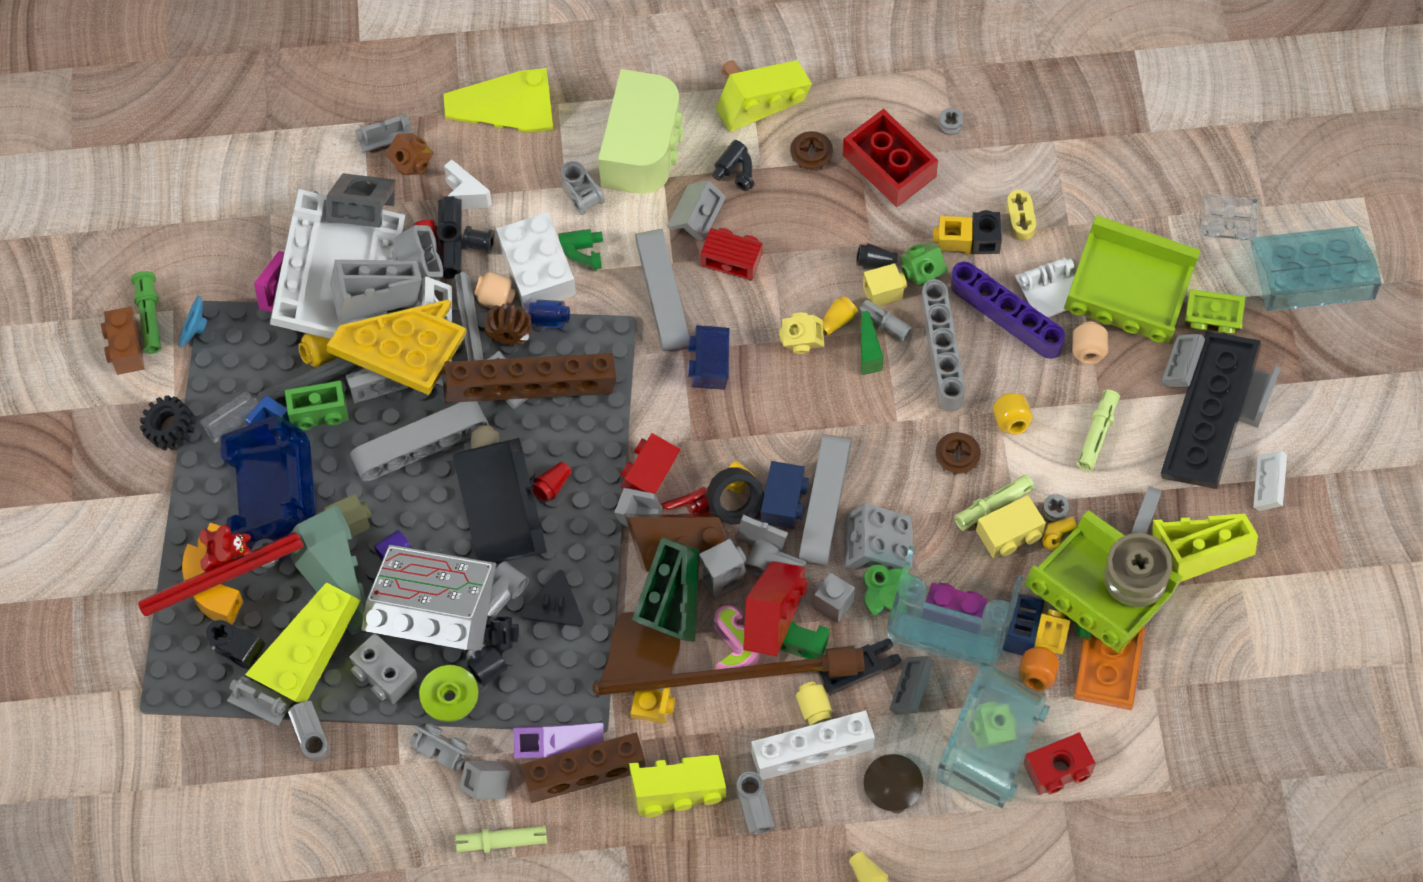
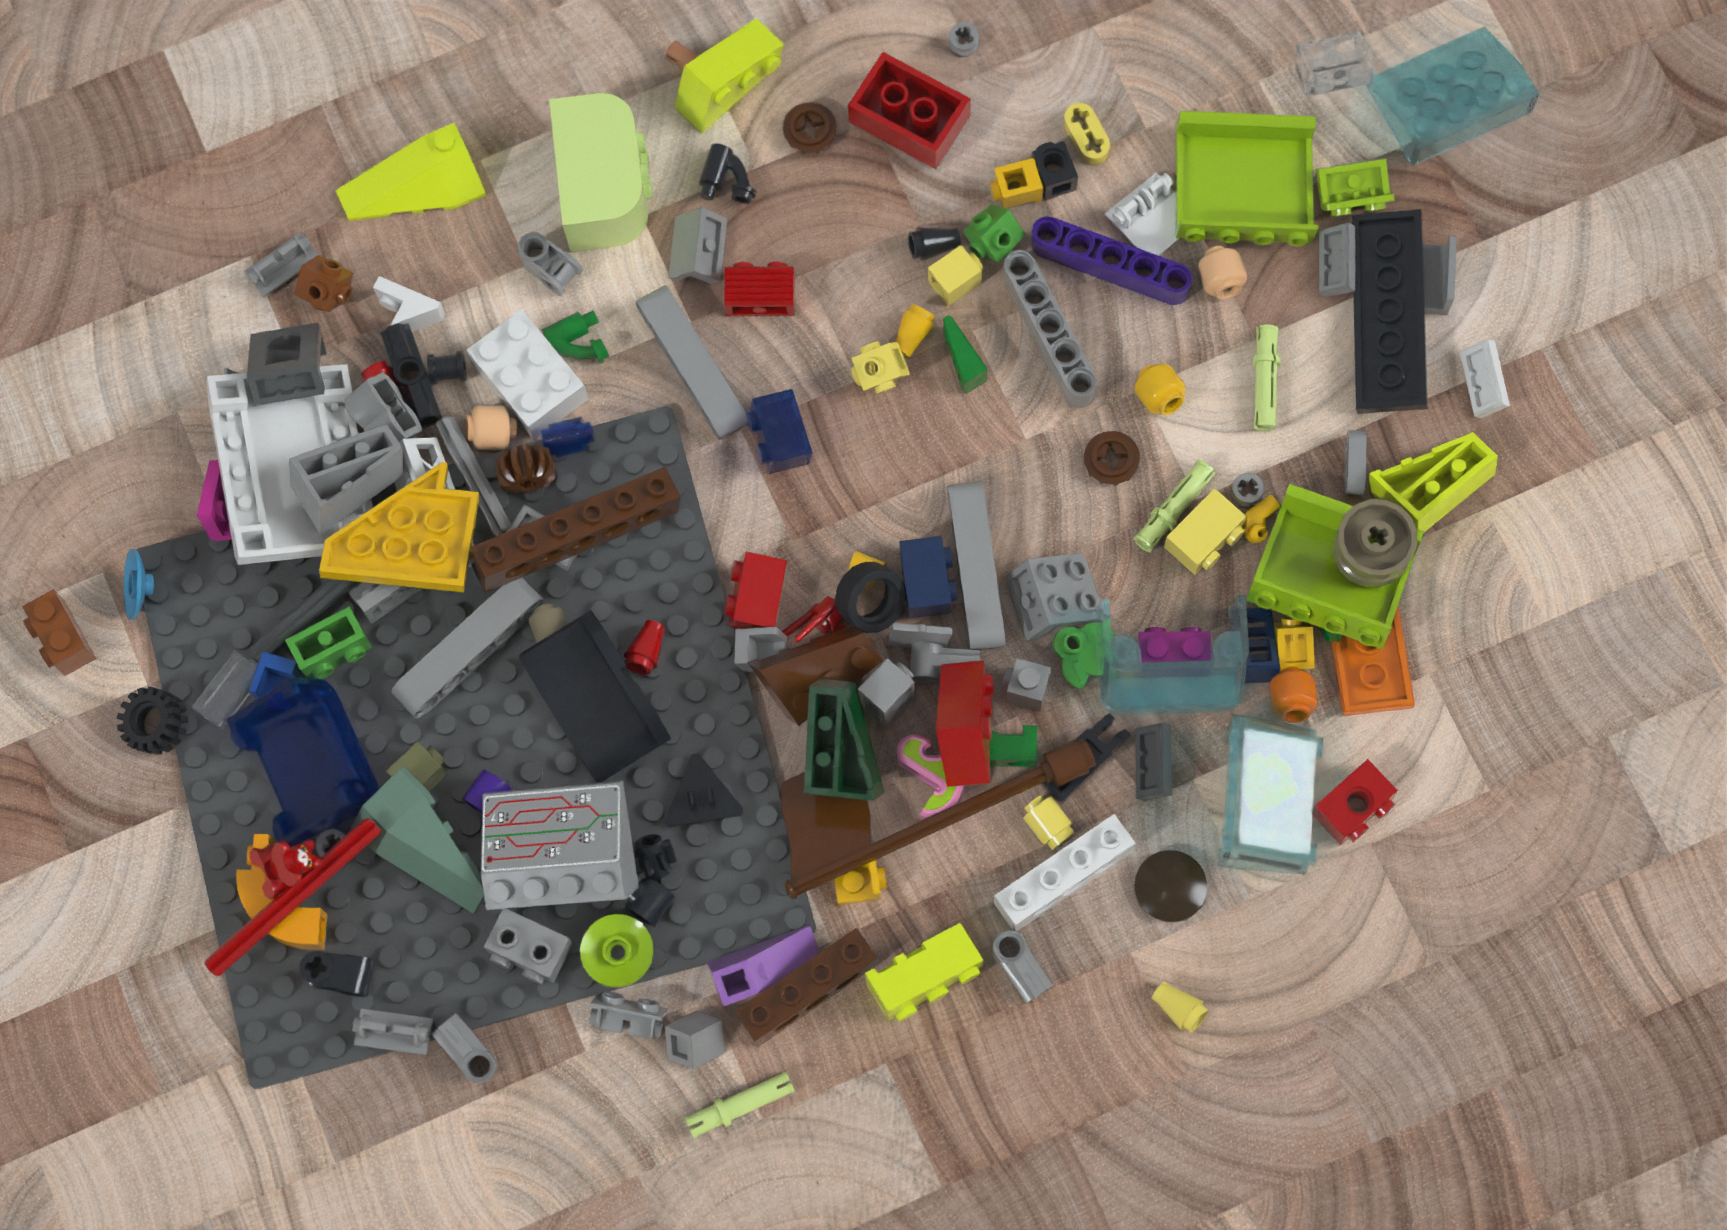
camera: 15 degrees left, 10 degrees up
(146, 300) = (67, 572): bright green pin -> none
(306, 645) = (426, 955): neon yellow wedge -> none
(314, 350) = (301, 574): yellow head -> none
(507, 584) = (640, 794): light grey piece -> none
(886, 320) = (971, 317): light grey axle -> none

